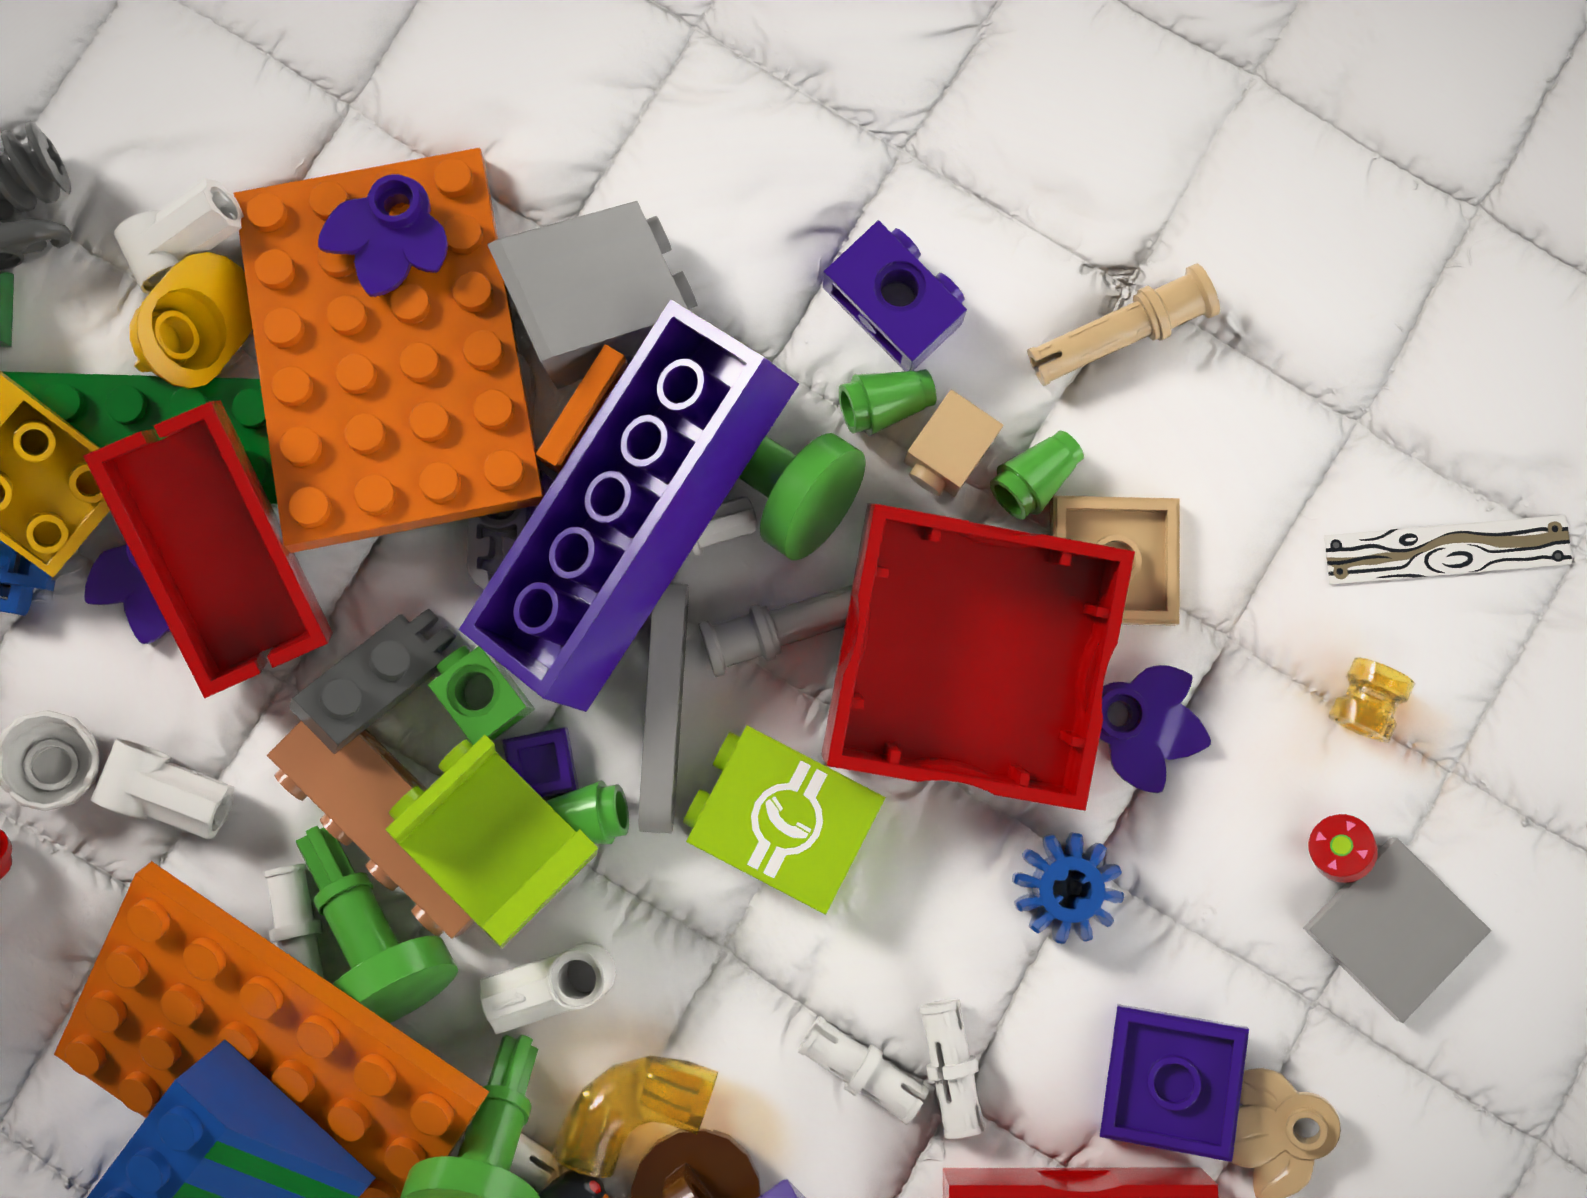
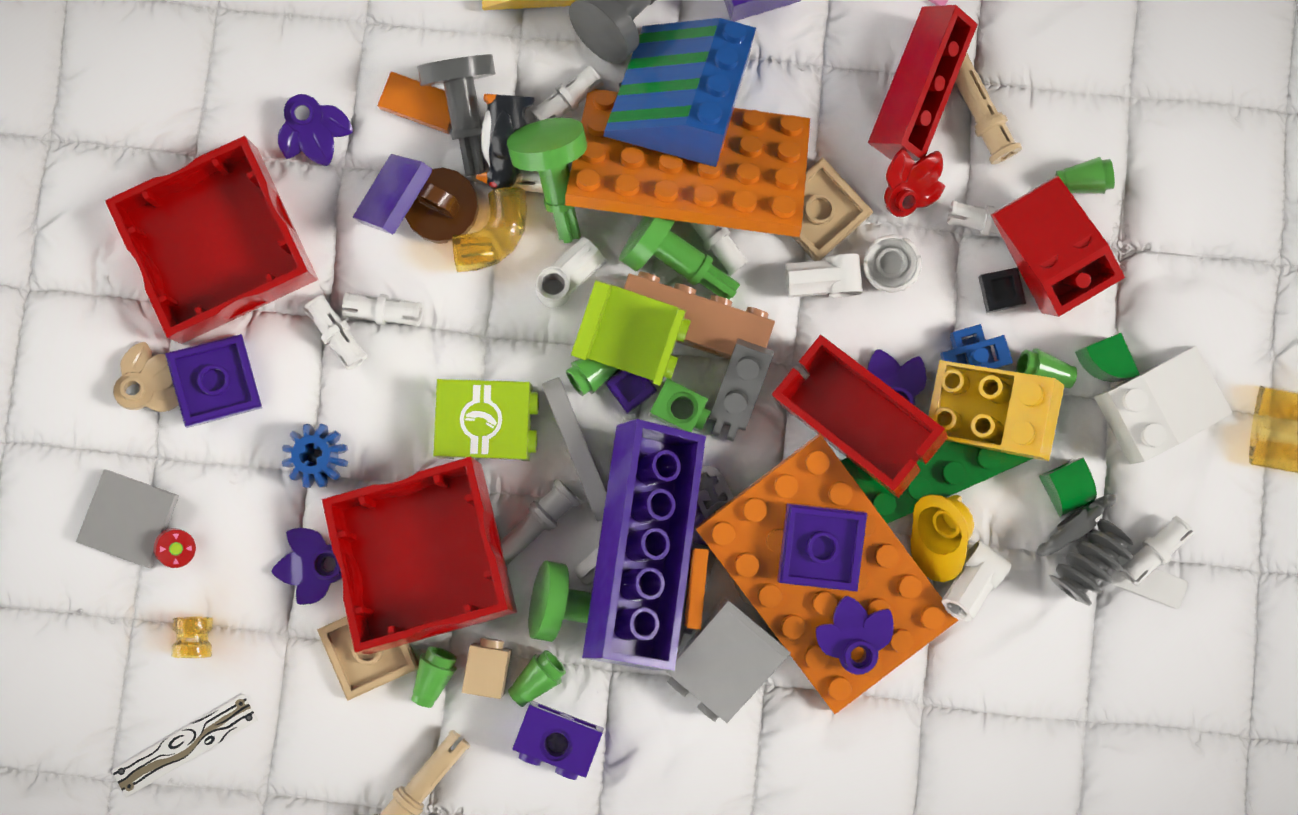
camera: 155 degrees right, 0 degrees up
(89, 884) = (829, 211): none -> tan tile
(367, 380) = (822, 547): none -> dark purple tile

